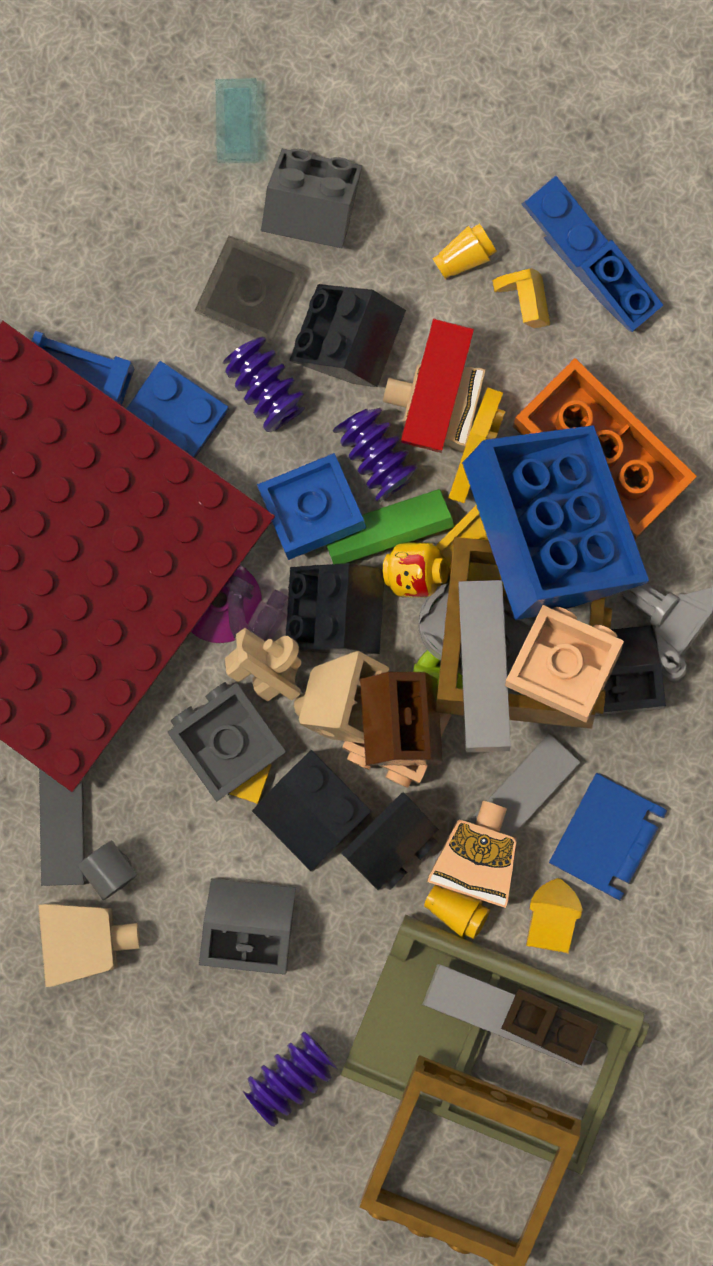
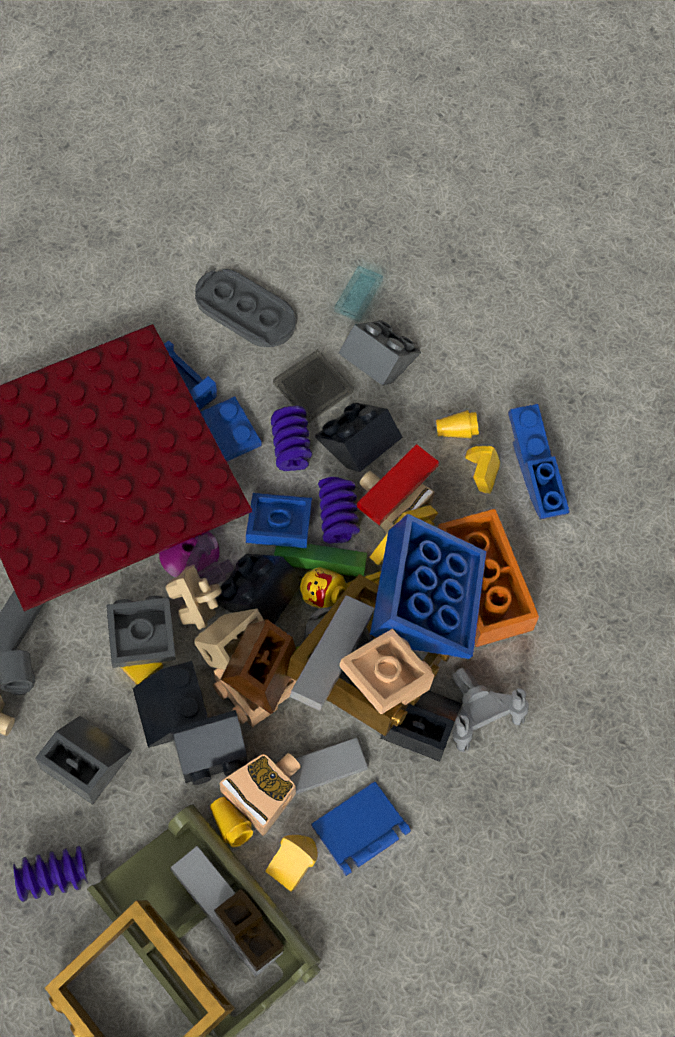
camera: 20 degrees right, 20 degrees down
(99, 220) = (245, 308): none -> dark grey tile

